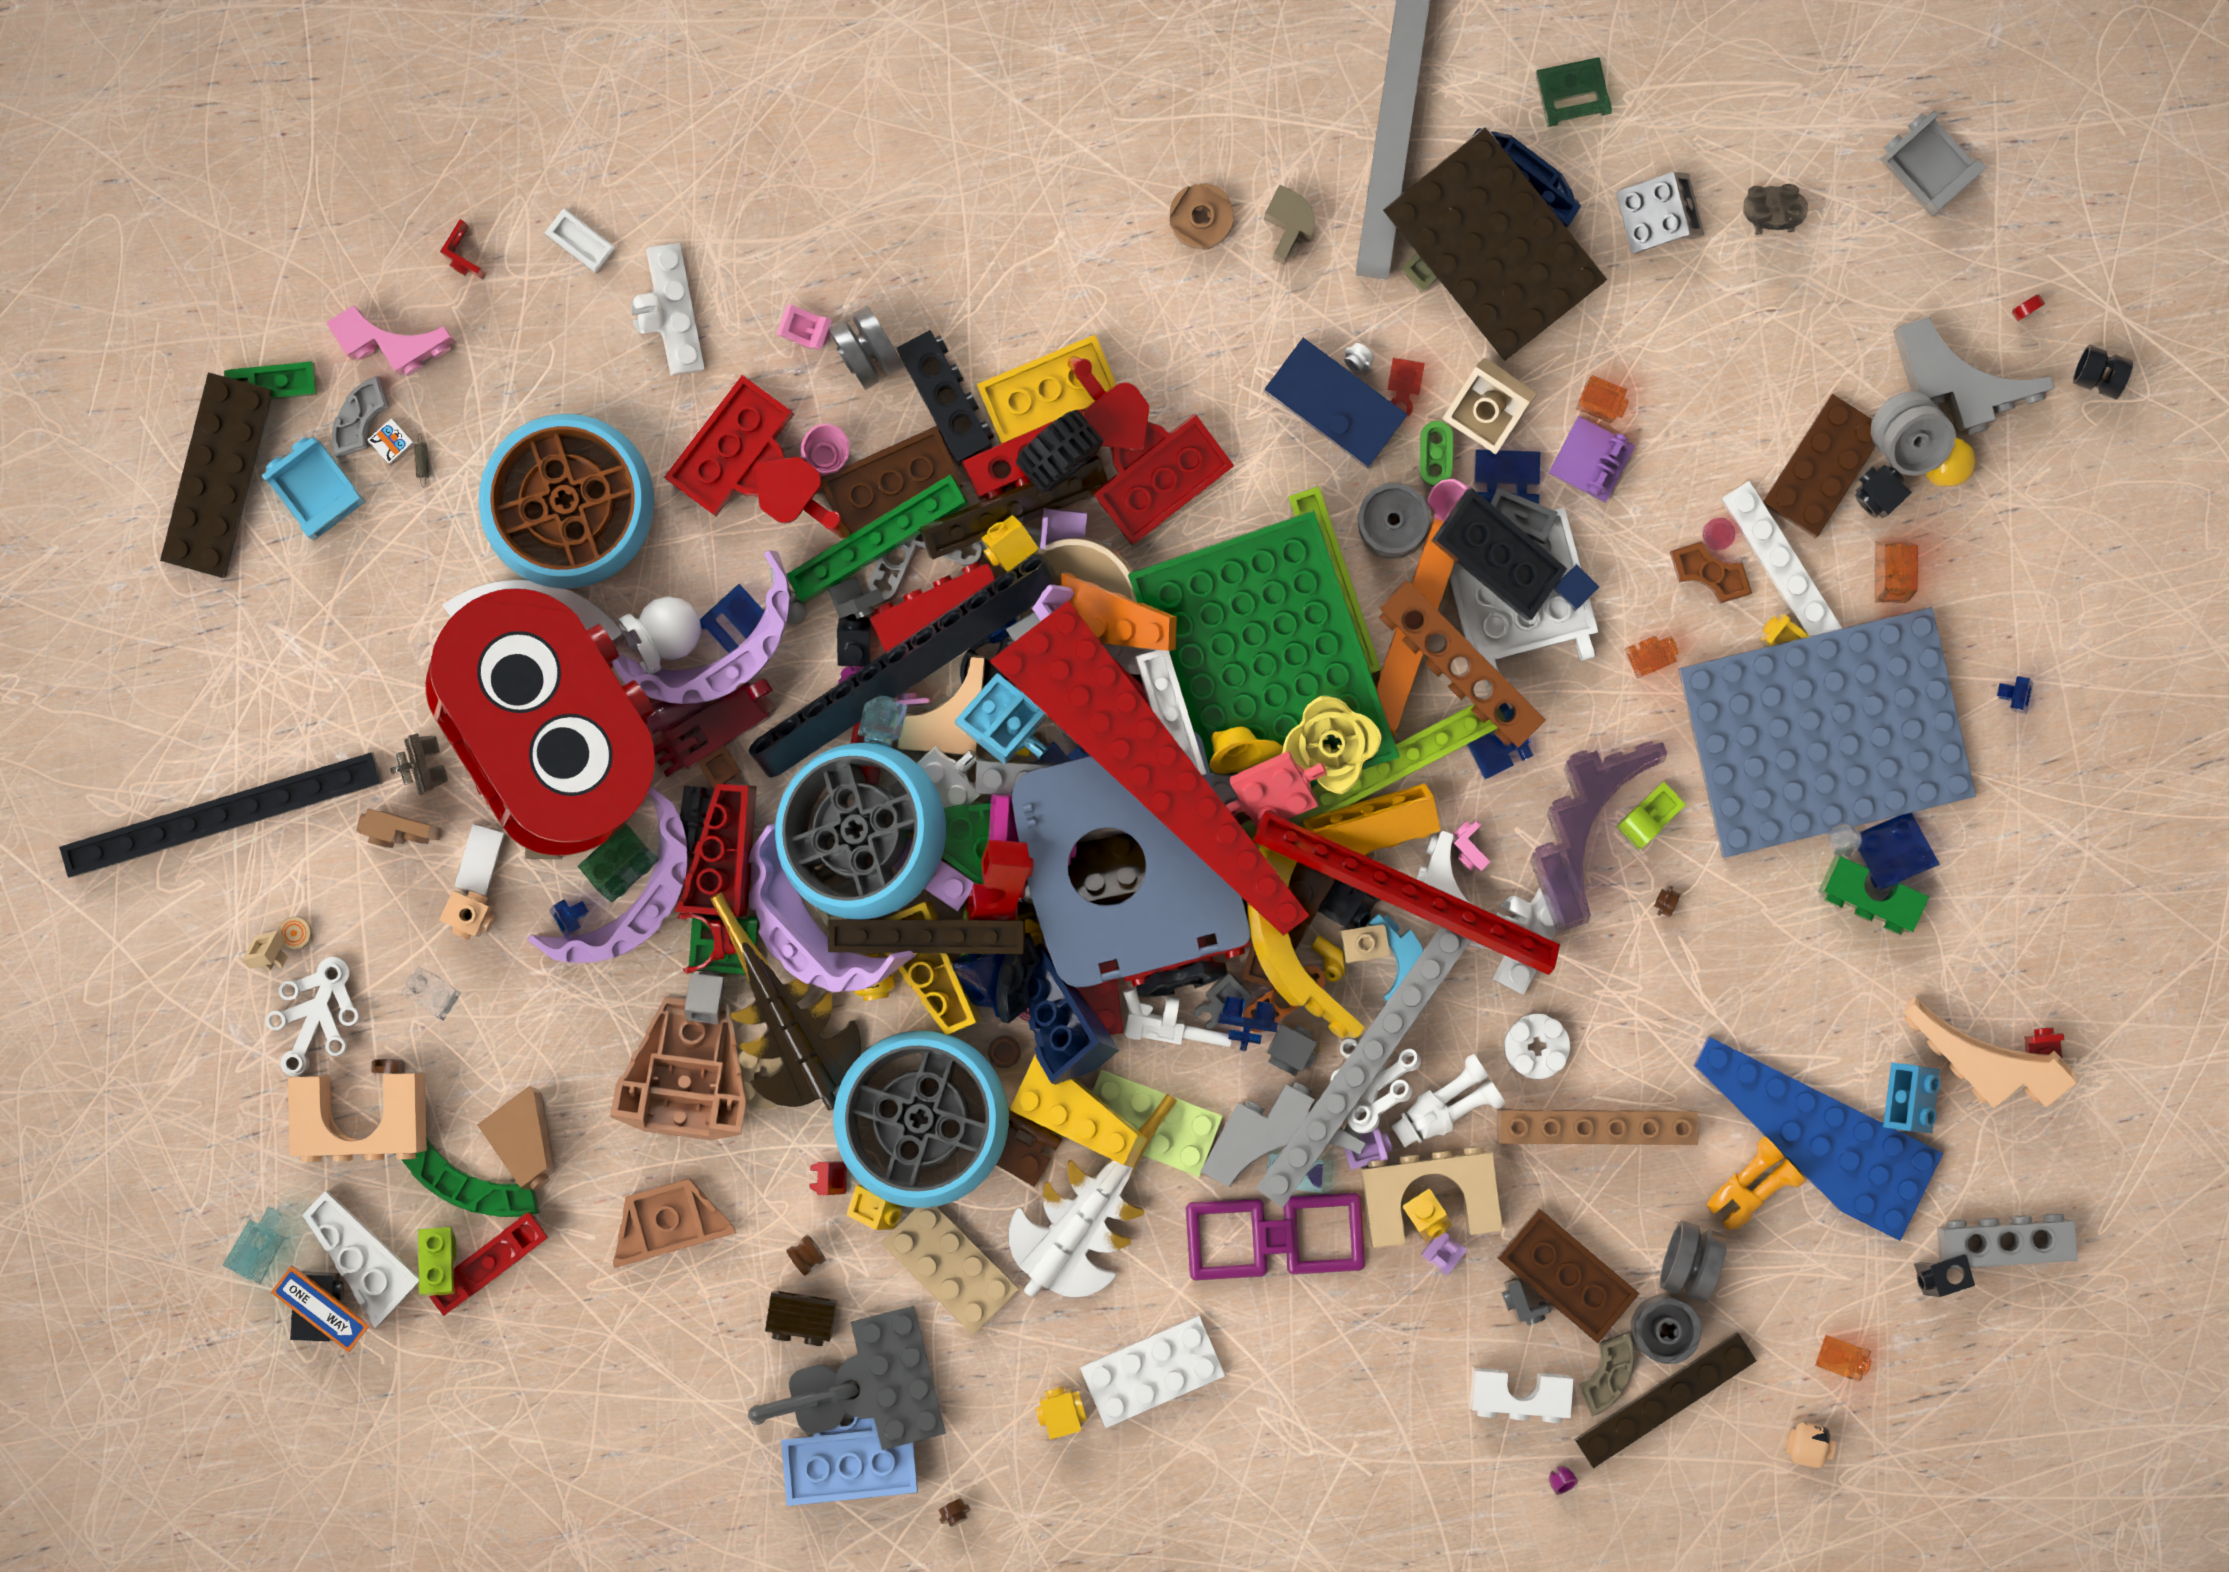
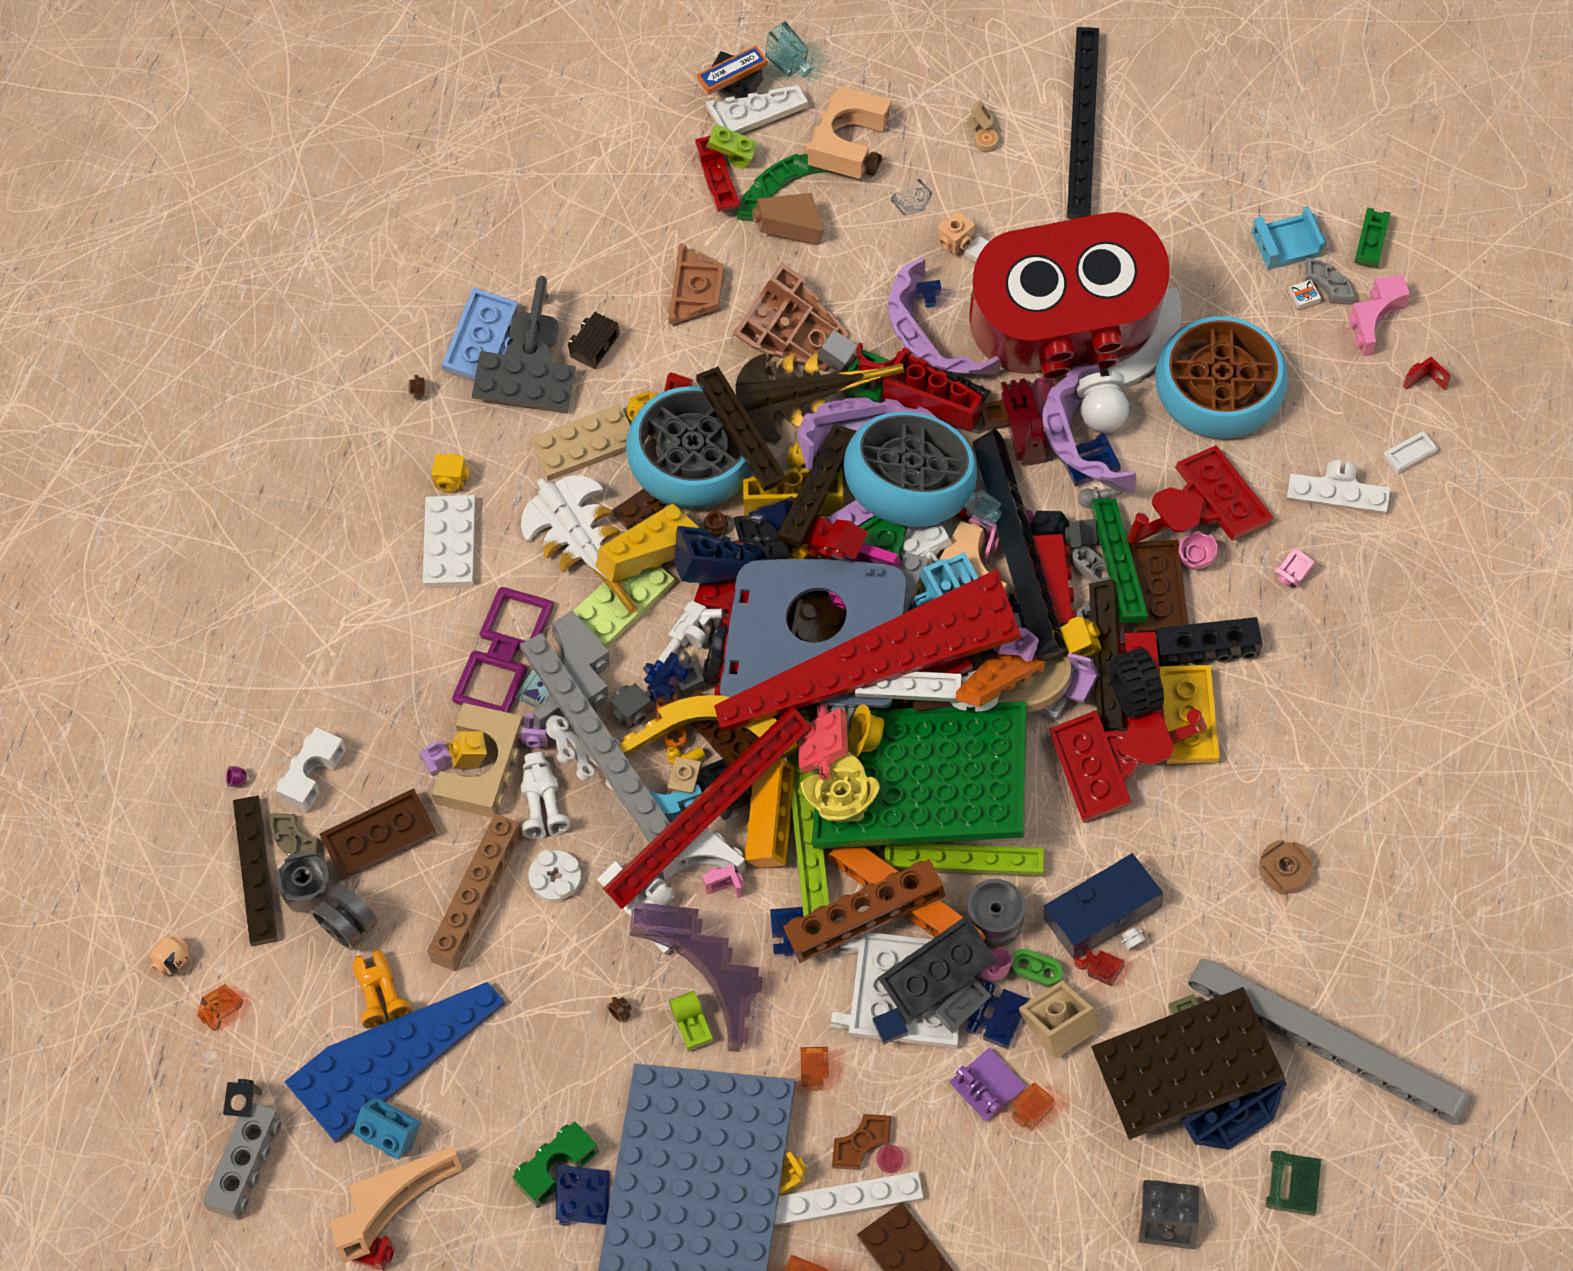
camera: 120 degrees right, 25 degrees down
(216, 475) = (1318, 186): dark brown plate -> none
(316, 1011) = (947, 150): white plant -> none
(386, 829) = (1034, 204): medium nougat plate -> none
(421, 460) = (1284, 308): dark tan piece -> none
(618, 863) = (952, 332): clear green bracket -> none
(806, 1255) = (633, 356): reddish brown wheel -> none
(862, 350) = (1264, 595): flat silver wheel -> none
(888, 1061) = (741, 429): none -> dark brown plate
(1294, 215) = (1258, 932): dark tan brick -> none
(1516, 1300) = (373, 792): dark grey bracket -> none
(1844, 840) = (607, 1157): clear piece -> none

